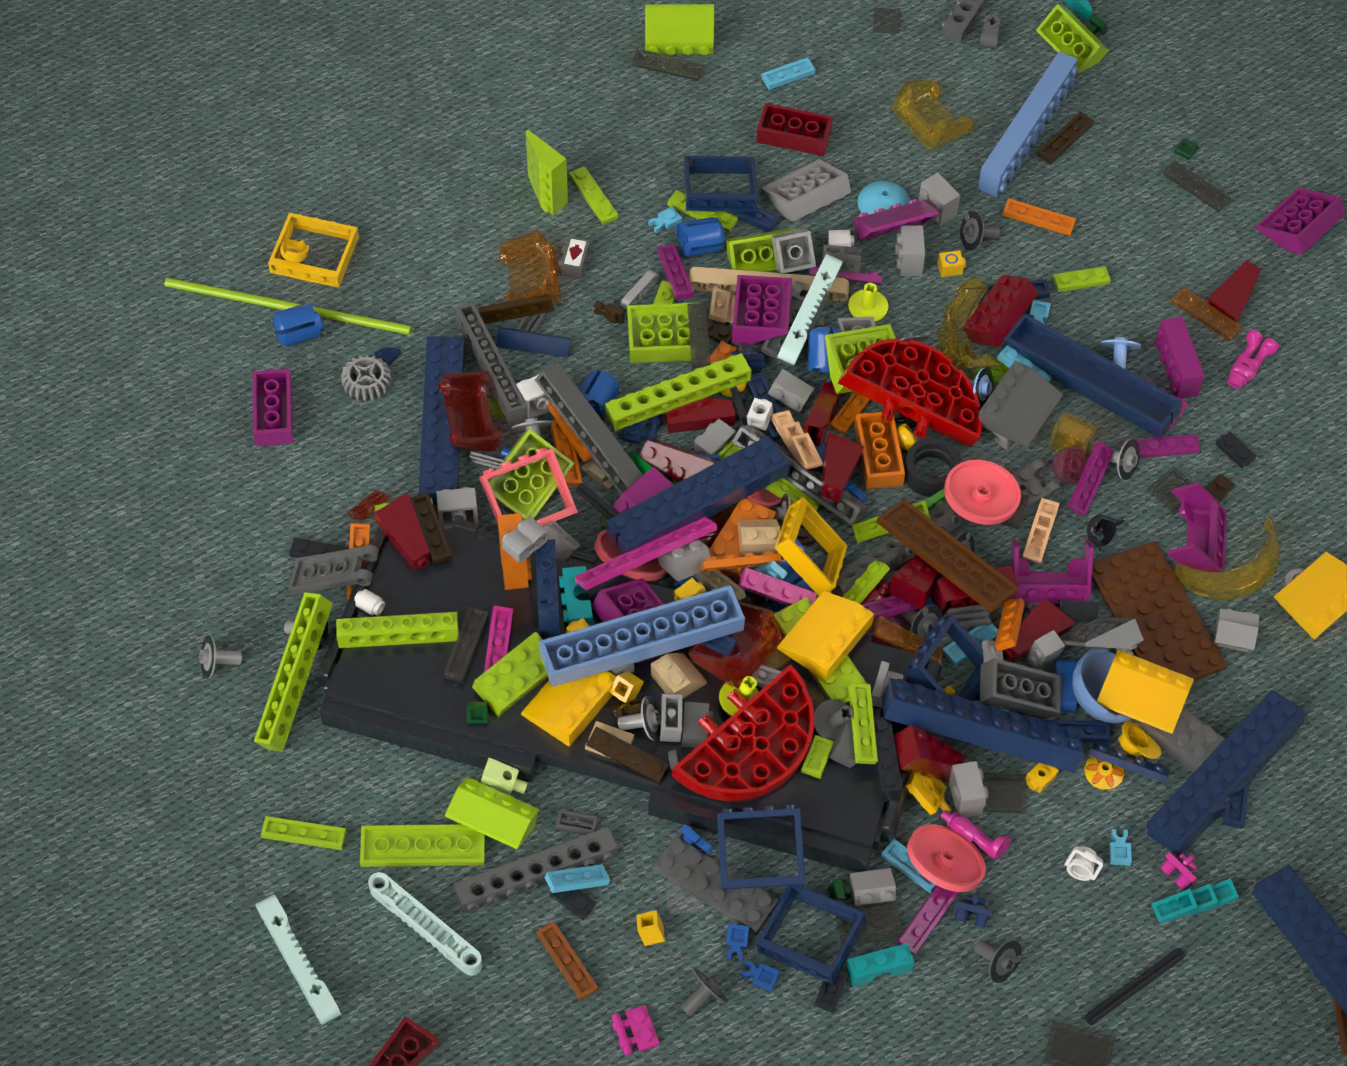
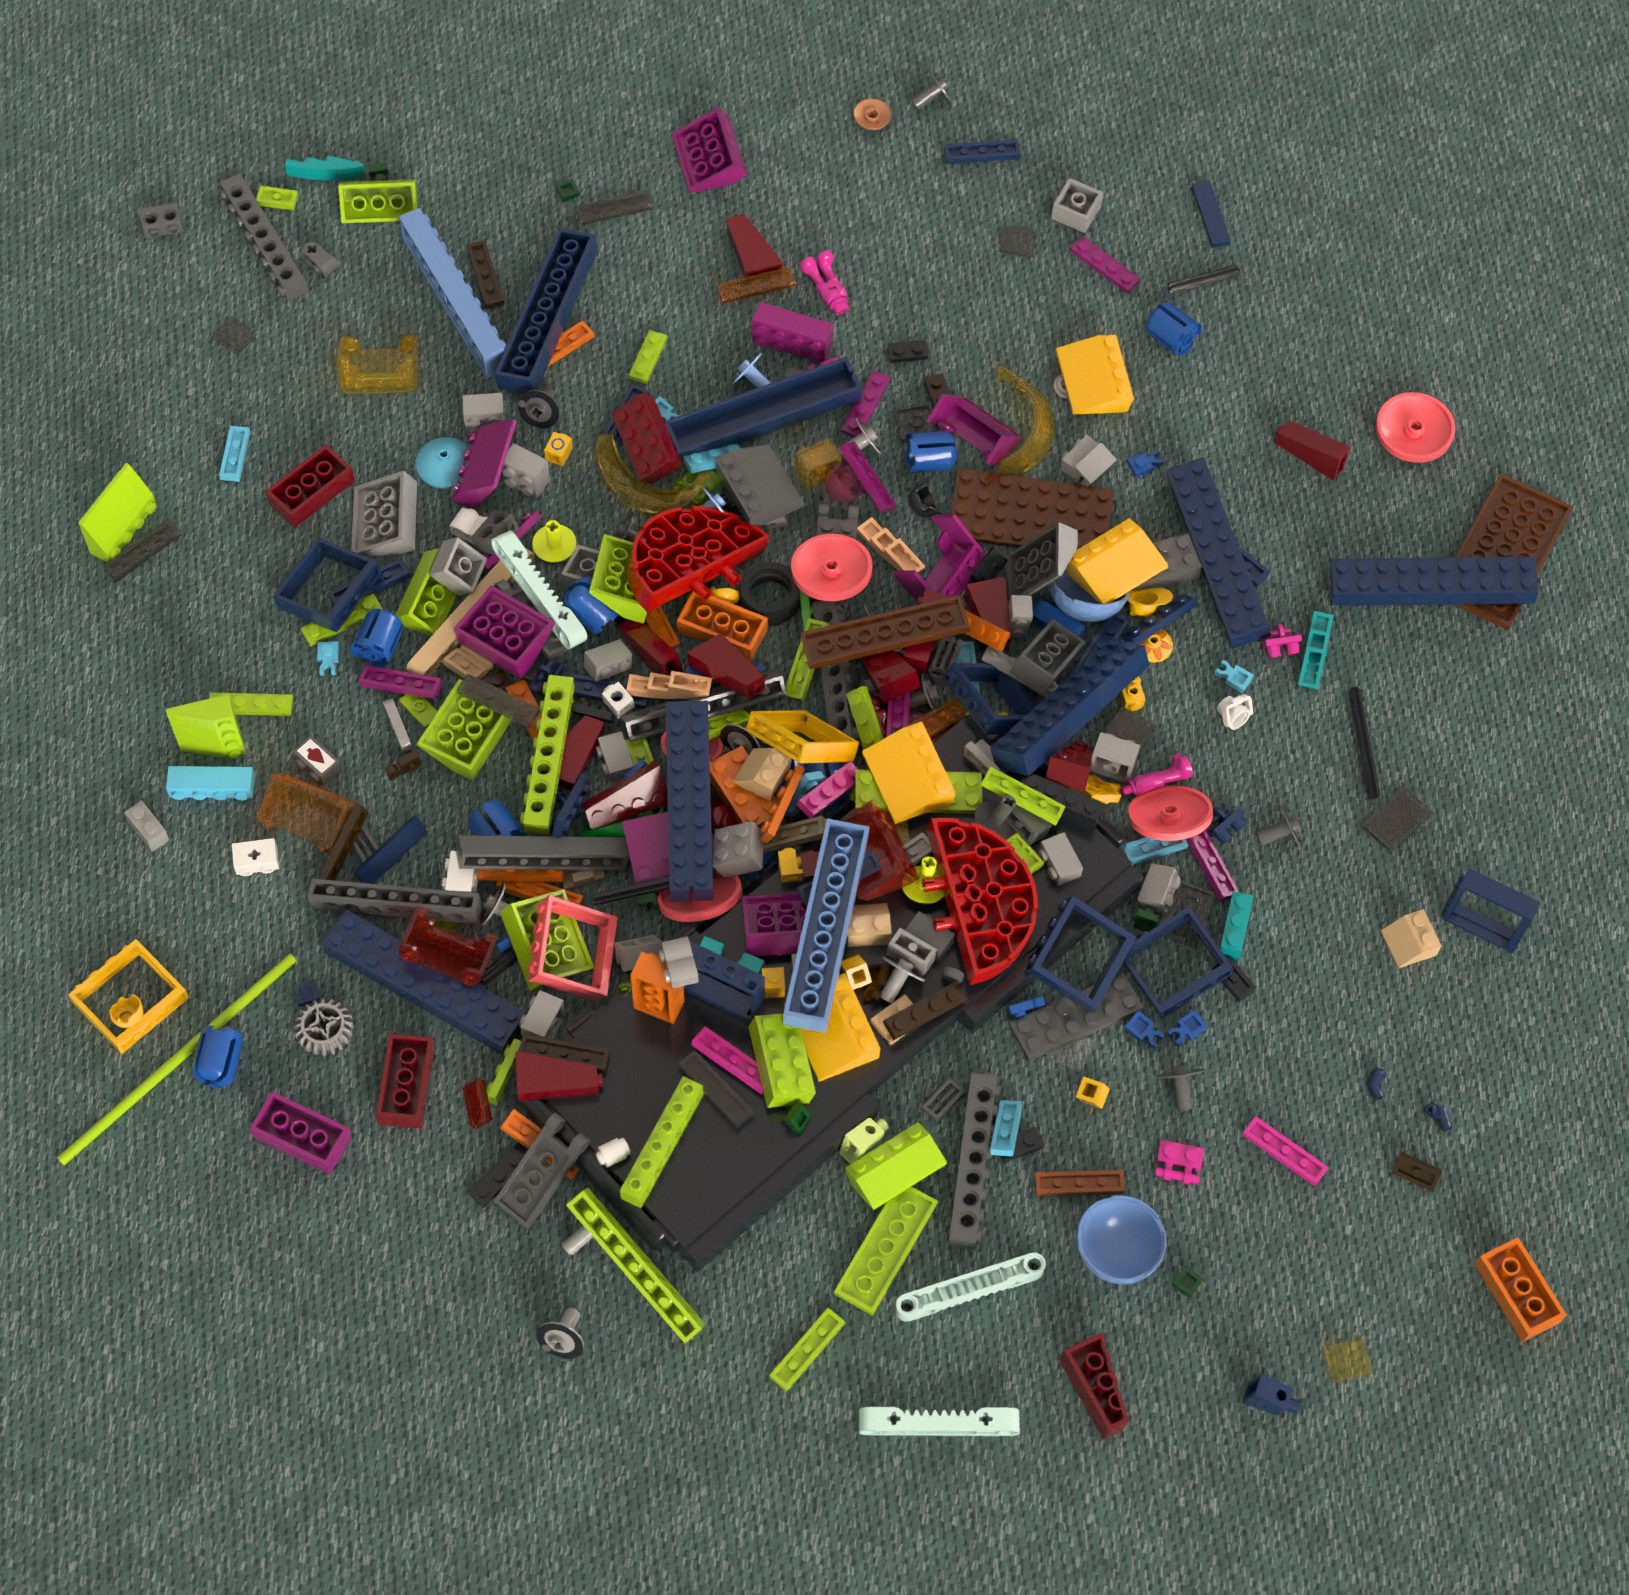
camera: 60 degrees left, 5 degrees up
(354, 449) = (405, 1081): none -> dark red brick
(451, 186) = (146, 826): none -> light grey brick
(472, 263) = (245, 853): none -> white brick
(512, 204) = (210, 782): none -> medium azure brick
(526, 1010) = (1121, 1240): none -> medium blue piece
(645, 553) = (724, 877): dark pink tile -> none
(646, 429) = (570, 807): none -> dark blue plate
(832, 787) = (1060, 859): none -> light grey brick
(1061, 189) = (546, 311): none -> dark blue brick
(1149, 510) = (930, 451): none -> blue cylinder
(1272, 675) = (1142, 464): none -> blue plate

